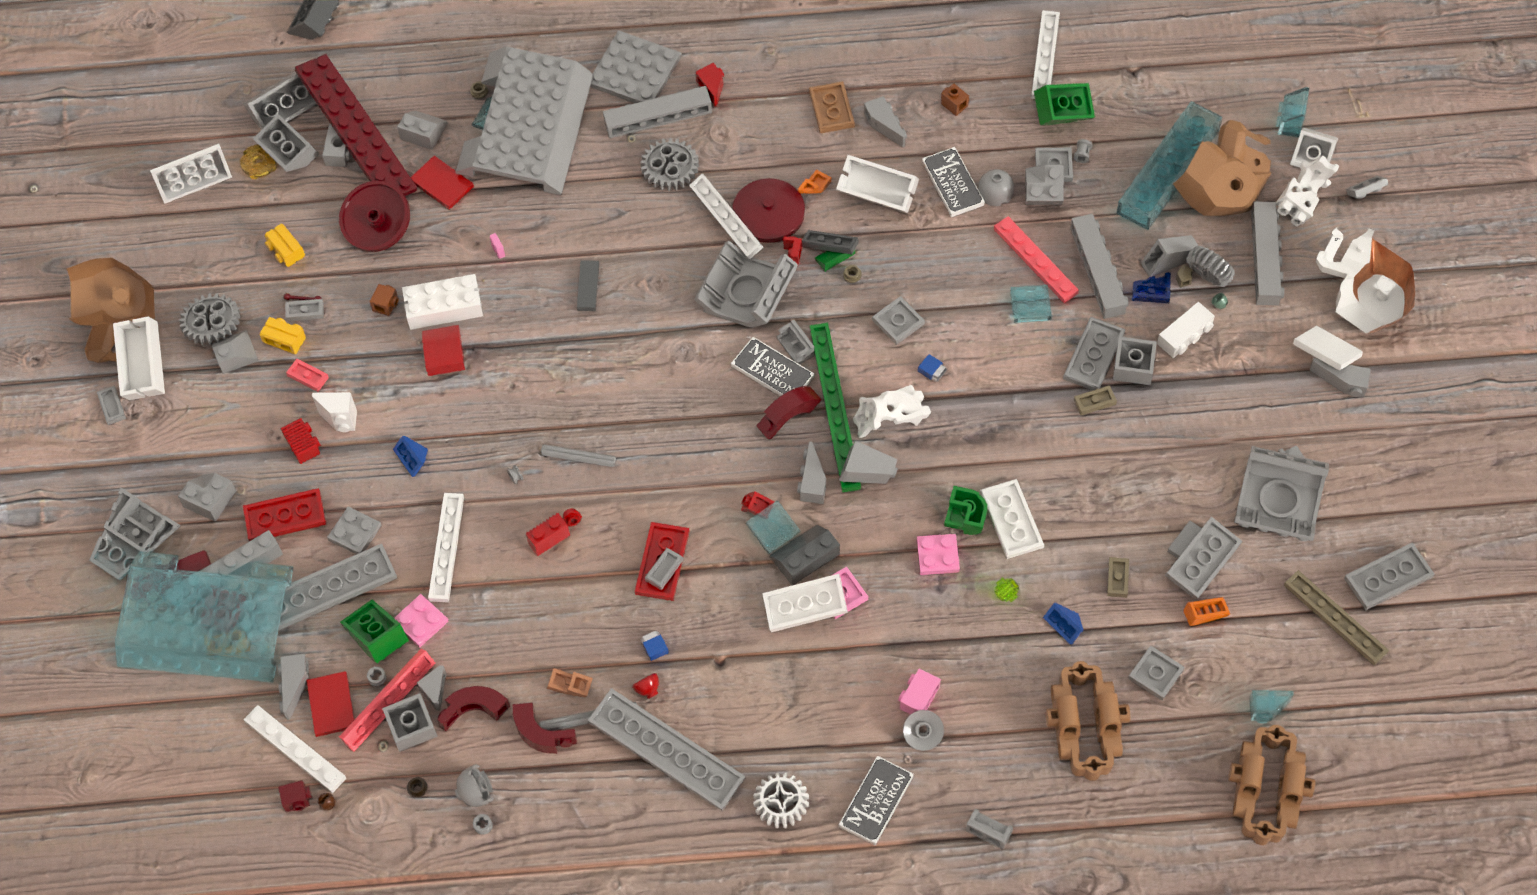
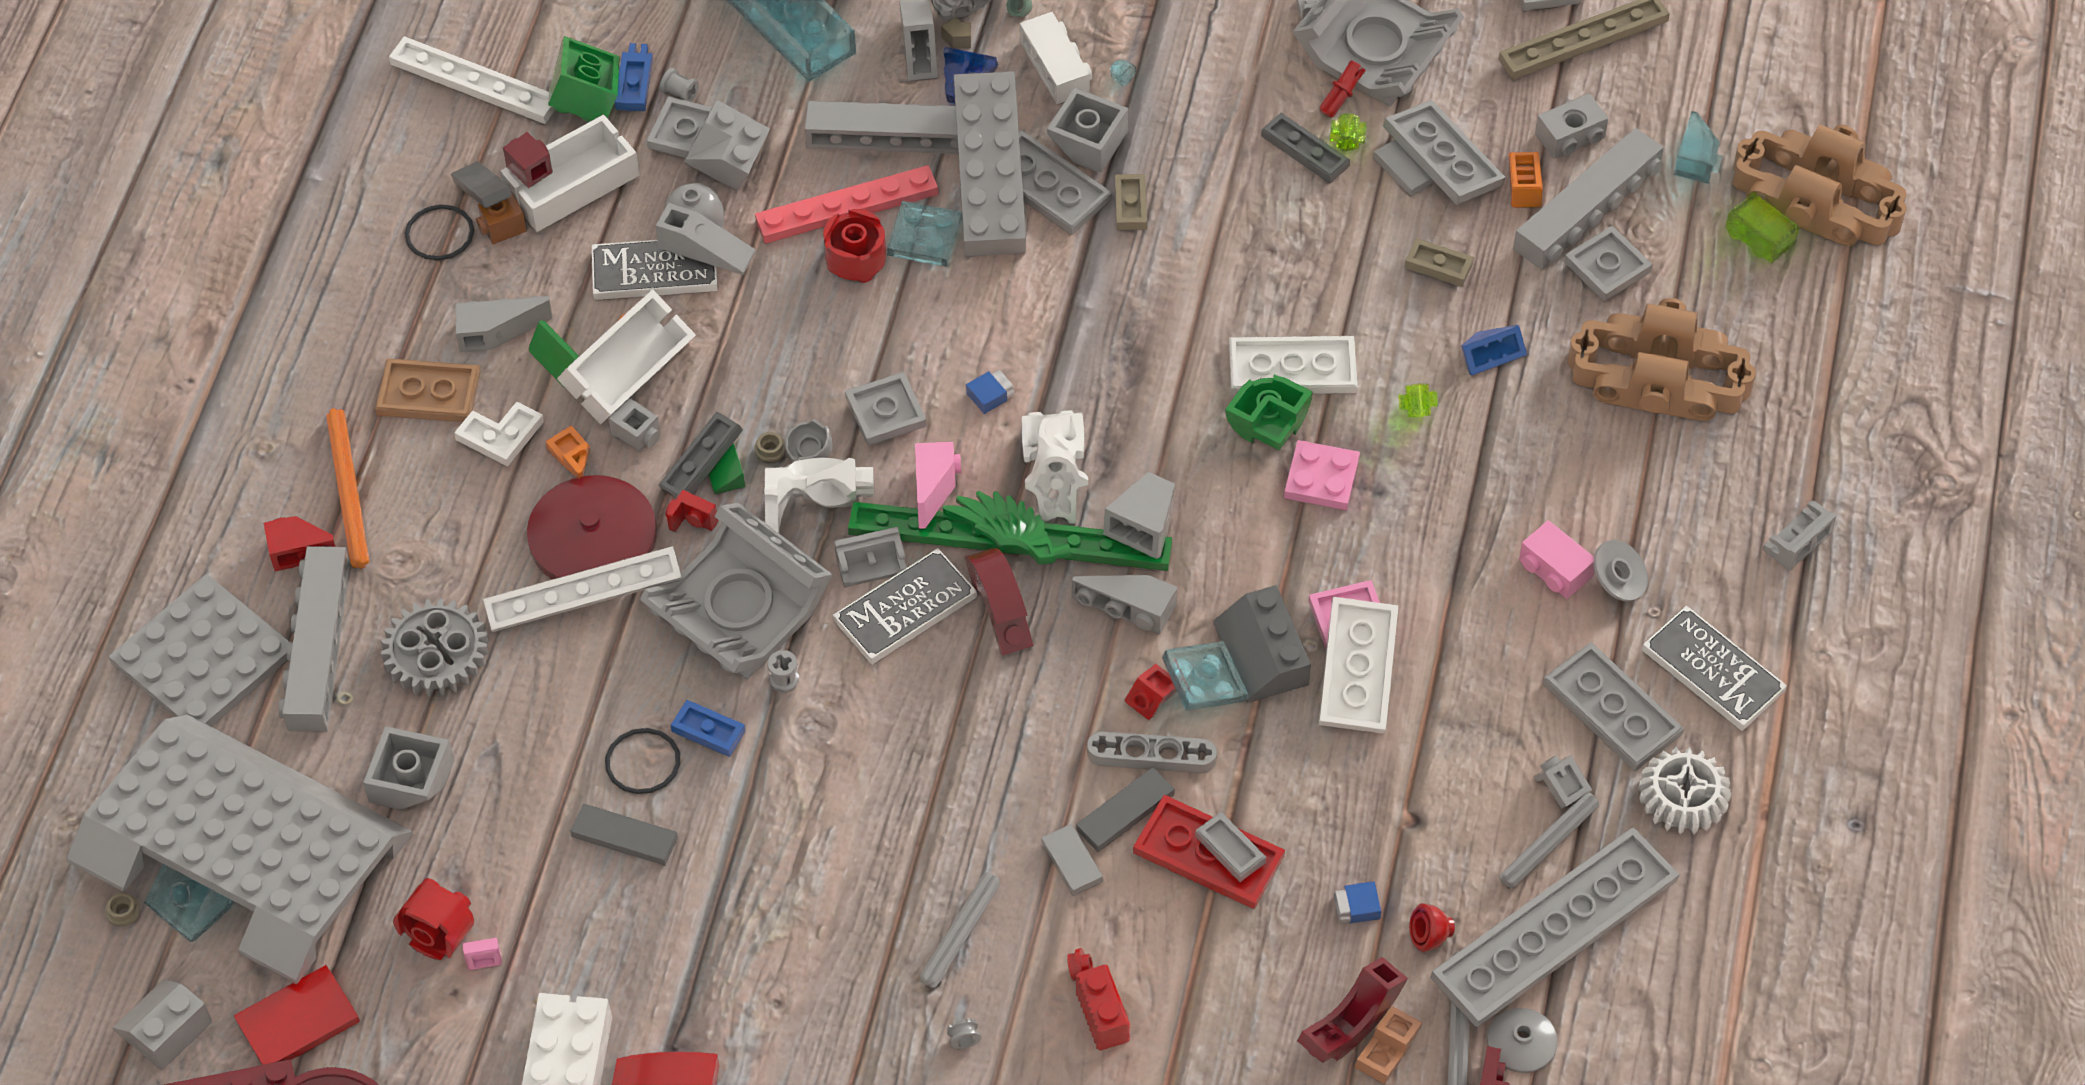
camera: 75 degrees left, 5 degrees down
(506, 216) = (434, 919): none -> red brick
(582, 661) = (1356, 1014): none -> dark red arch
(589, 175) = (407, 768): none -> light grey slope
(598, 760) = (1519, 1053): none -> light grey dish
(636, 296) = (646, 790): none -> black piece
(638, 496) = (1072, 859): none -> light grey tile
(662, 301) = (708, 728): none -> blue plate
(677, 513) = (1124, 809): none -> dark grey tile
(708, 324) = (787, 668): none -> light grey bush
(718, 516) = (1152, 746): none -> light grey beam
(726, 735) = (1549, 840): none -> light grey axle
(755, 93) = (347, 488): none -> orange axle
(767, 732) = (1563, 779): none -> light grey bracket
(811, 150) = (500, 440): none -> white plate
(828, 297) = (823, 480): none -> white hips
(830, 750) = (1613, 706): none -> light grey tile
(837, 401) = (1008, 525): none -> green animal
(840, 205) = (635, 425): none -> light grey brick
(854, 355) = (935, 477): none -> bright pink slope
(858, 290) = (808, 441): none -> light grey hair
(878, 151) = (551, 350): none -> green slope
(933, 62) = (446, 256): none -> black piece
(969, 80) = (481, 184): none -> dark grey tile
(971, 194) = (700, 239): none -> light grey slope
(983, 91) = (528, 159): none -> dark red brick
(995, 118) = (584, 169): none -> white piece
(1001, 269) = (855, 245): none -> red brick
(1080, 128) = (634, 79): none -> blue hinge
(1082, 315) = (989, 164): none -> light grey brick
(1178, 483) = (1305, 148): none -> dark grey tile
(1192, 369) = (1122, 71): none -> clear light blue hinge
(1196, 501) = (1348, 132): none -> clear neon green gear
(1202, 649) = (1588, 199): none -> light grey brick
(1221, 755) = (1761, 228): none -> clear neon green brick
(1228, 489) = (1342, 89): none -> red axle
(1253, 616) = (1571, 126): none -> light grey brick

